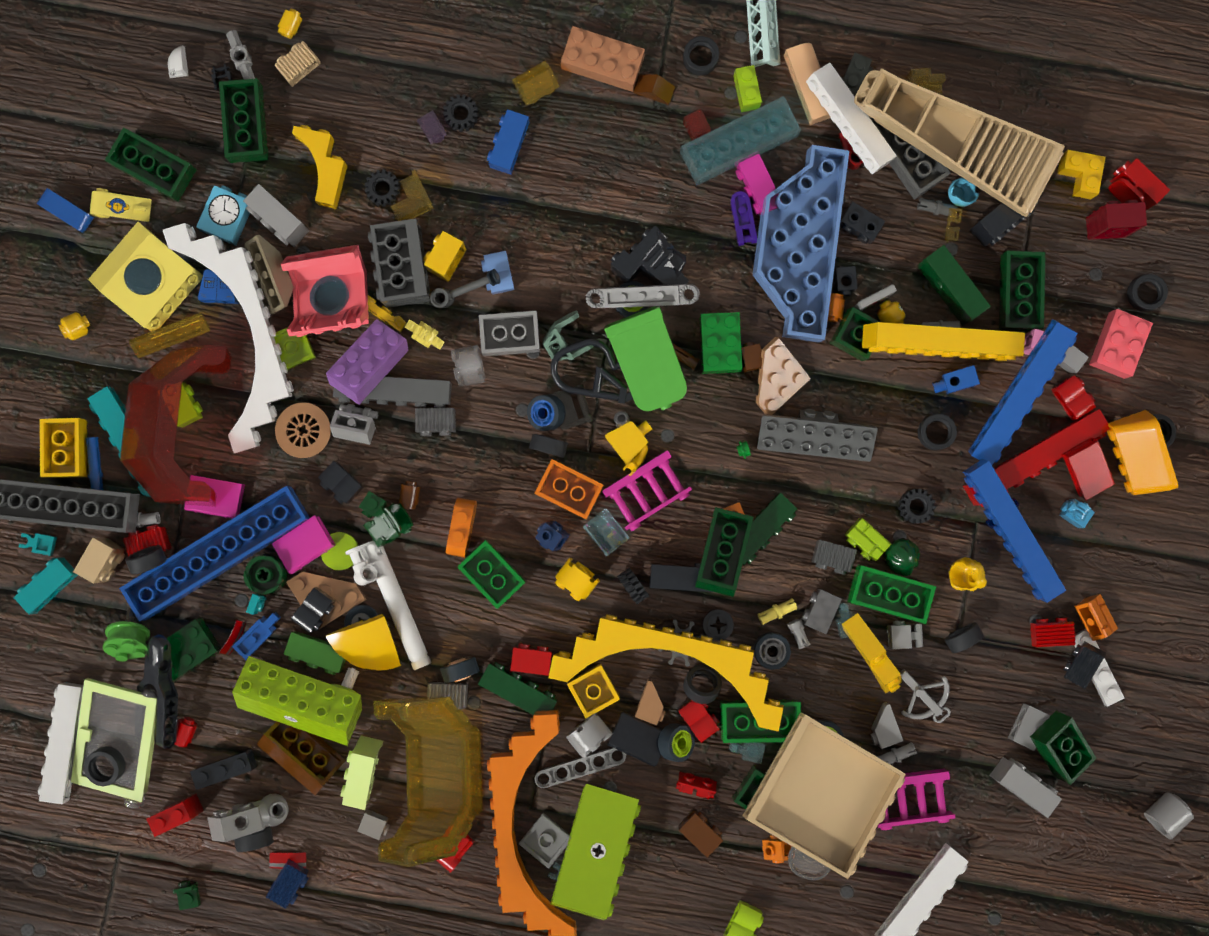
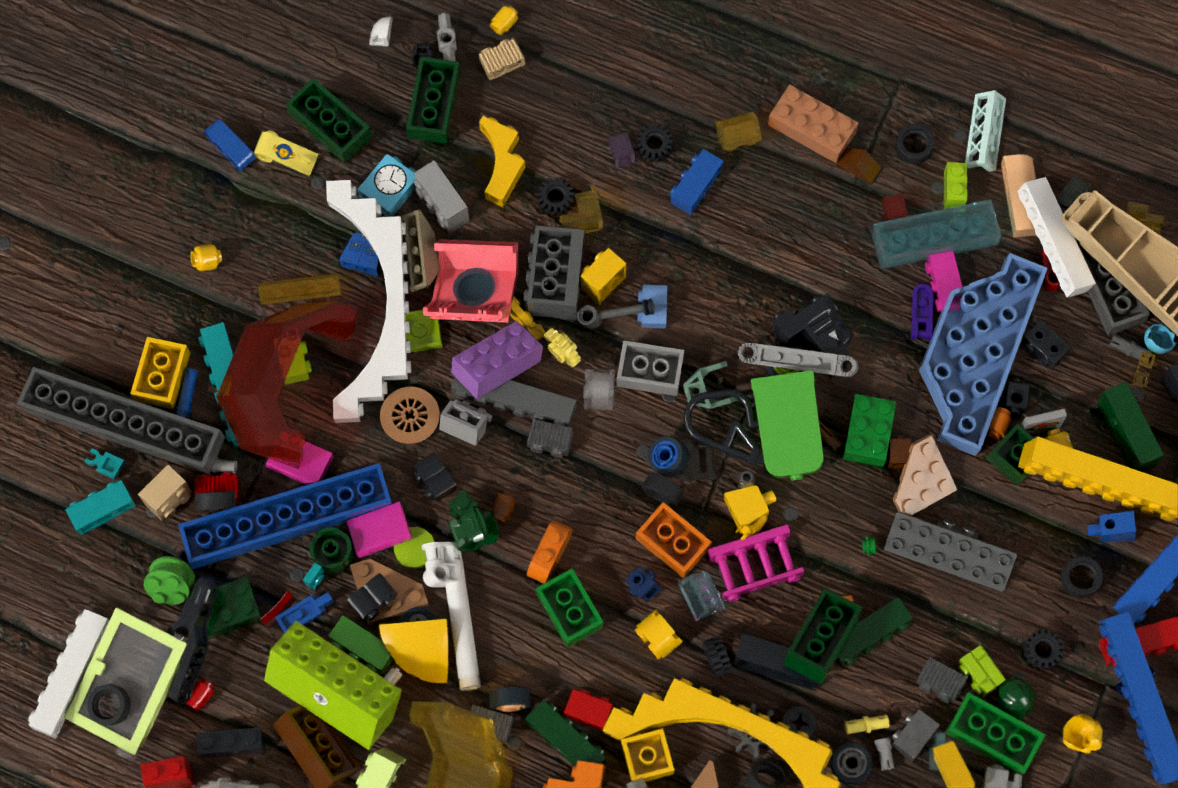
camera: 20 degrees right, 15 degrees down
(145, 278) = (293, 226): light yellow panel -> none

